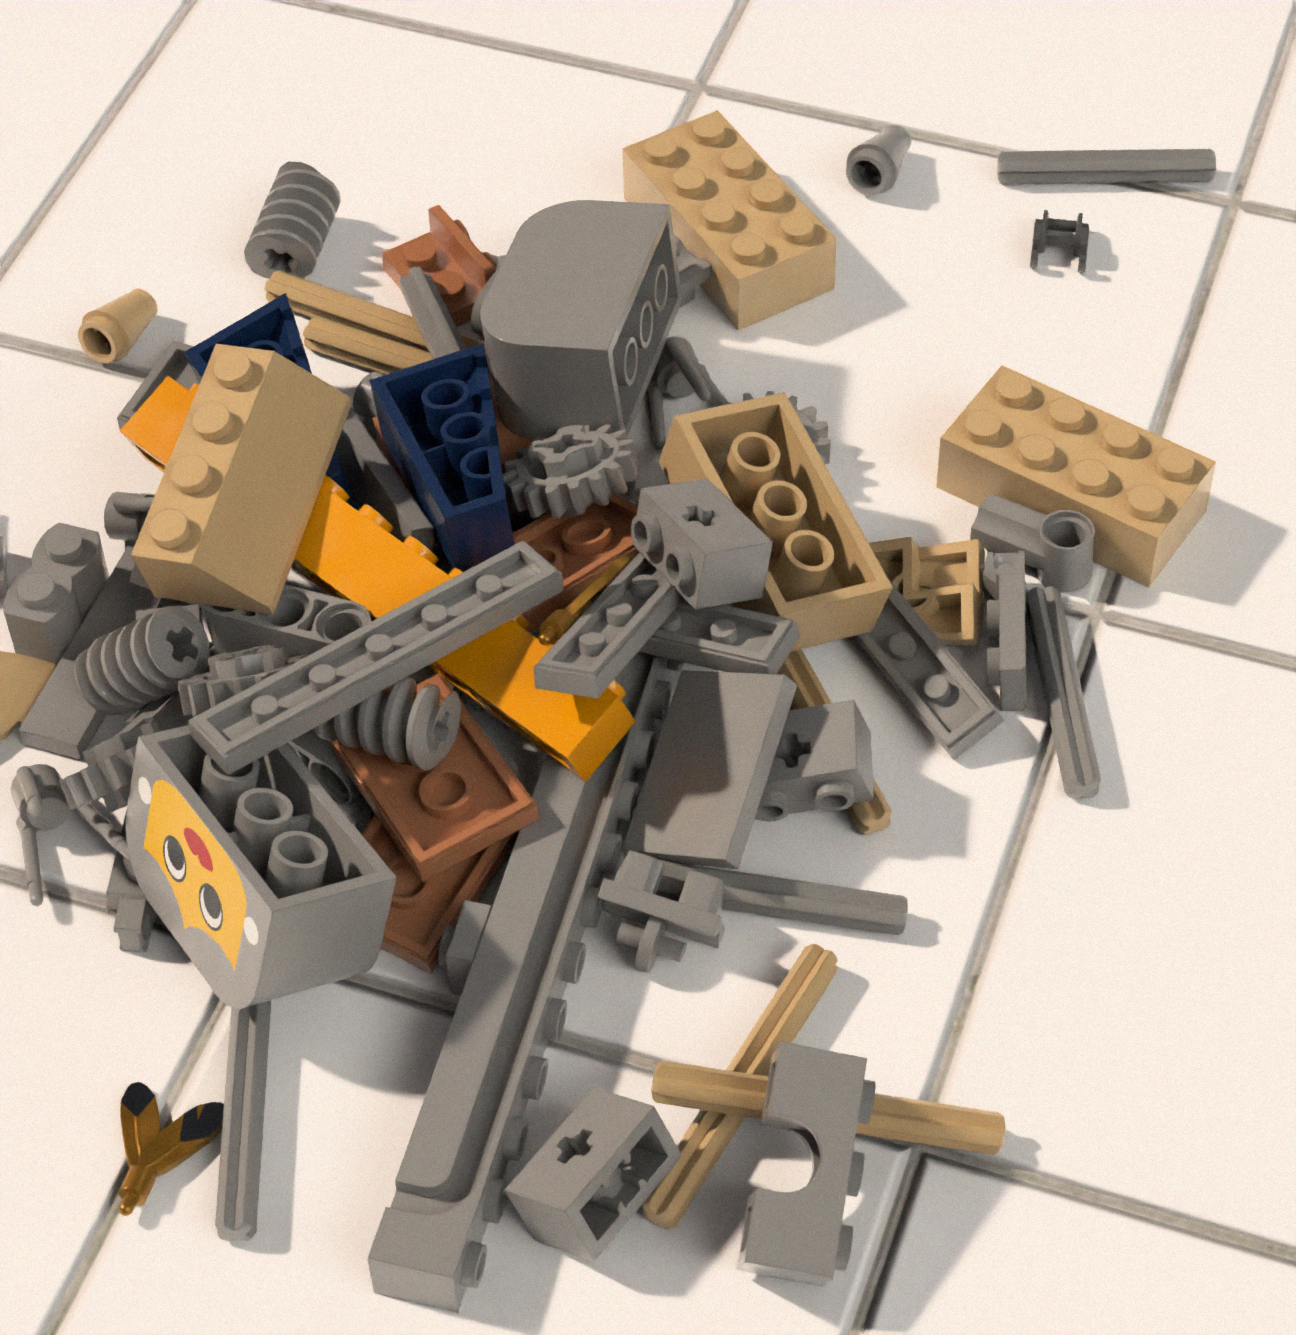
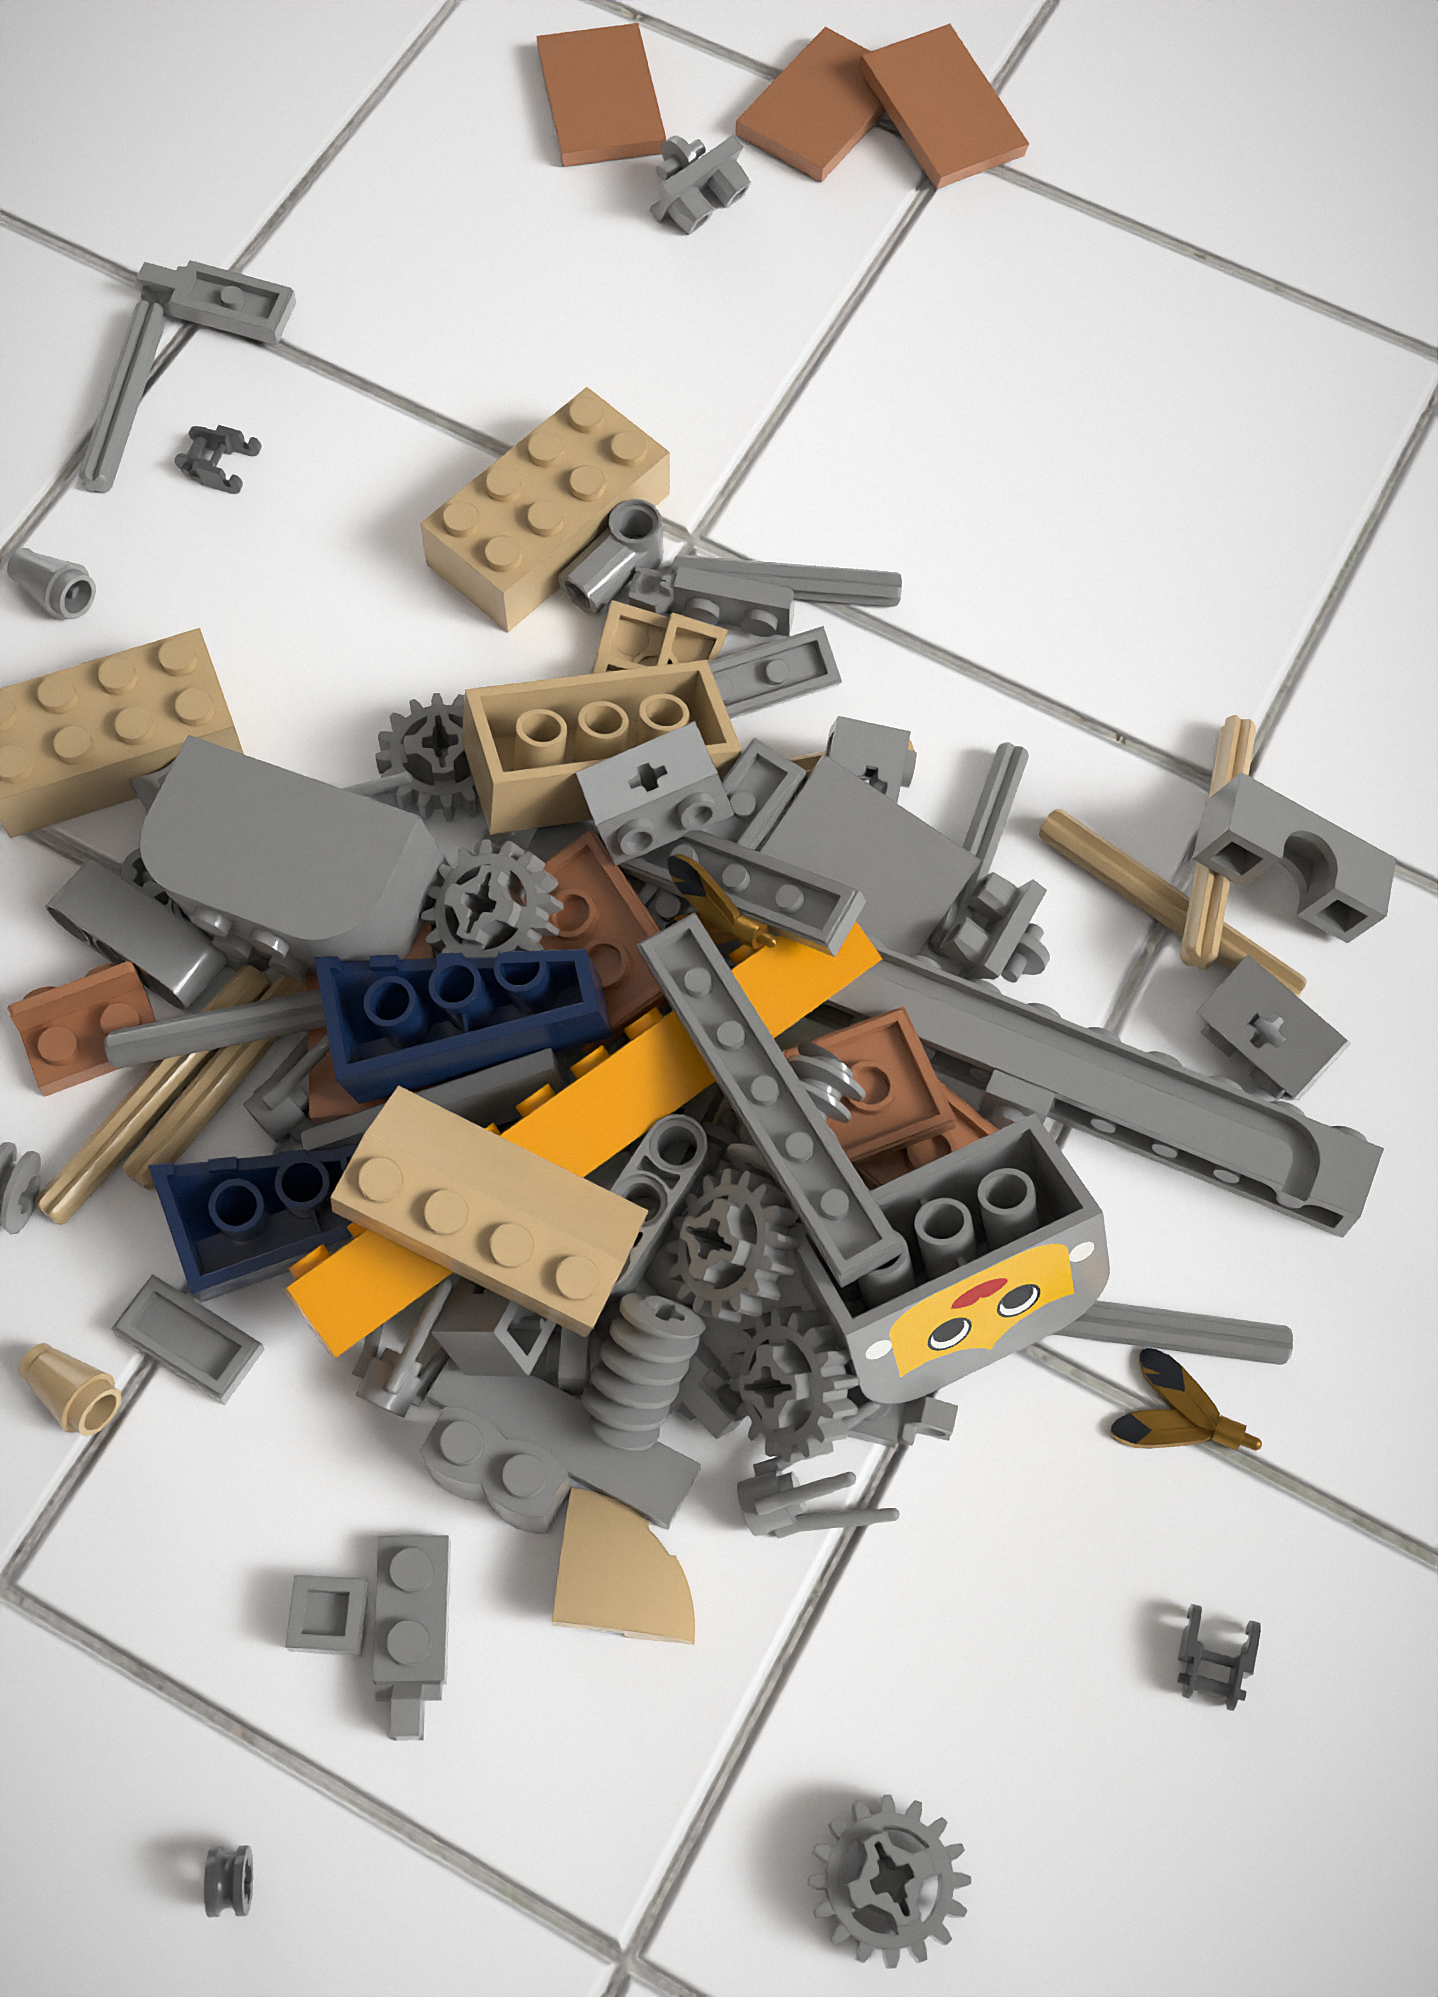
camera: 85 degrees left, 15 degrees up
(1240, 206) = (219, 299): none -> light grey hinge

